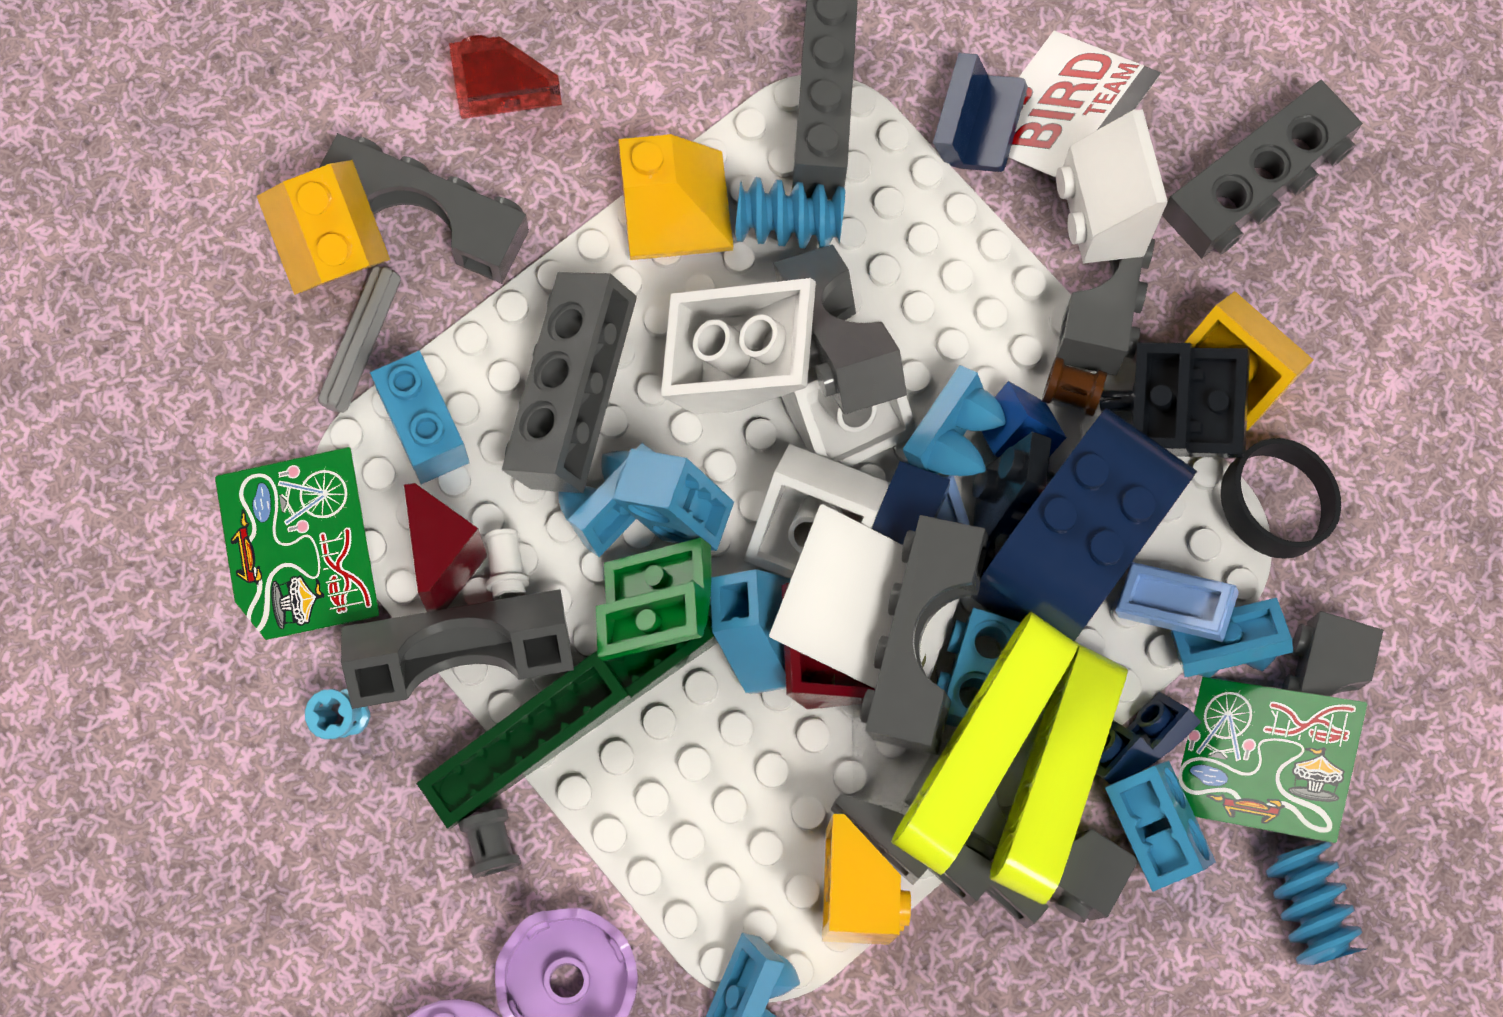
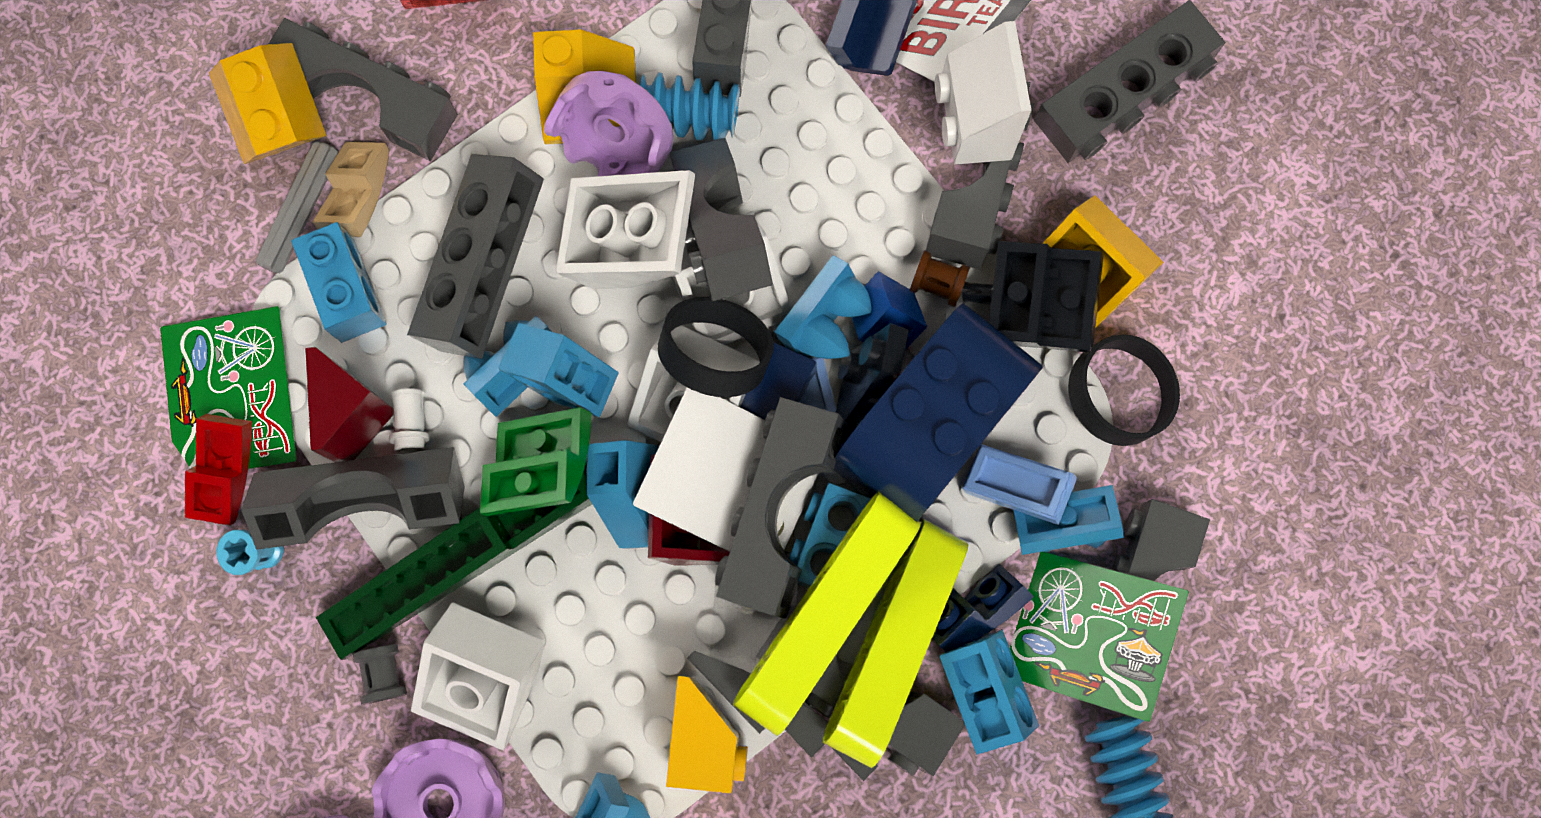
camera: 10 degrees right, 5 degrees up
(295, 628) = (219, 478): none -> red slope
(424, 313) = (356, 184): none -> tan slope
(601, 836) = (476, 675): none -> white slope
(707, 262) = (587, 135): none -> lavender plate
(830, 495) = (705, 379): none -> black tyre

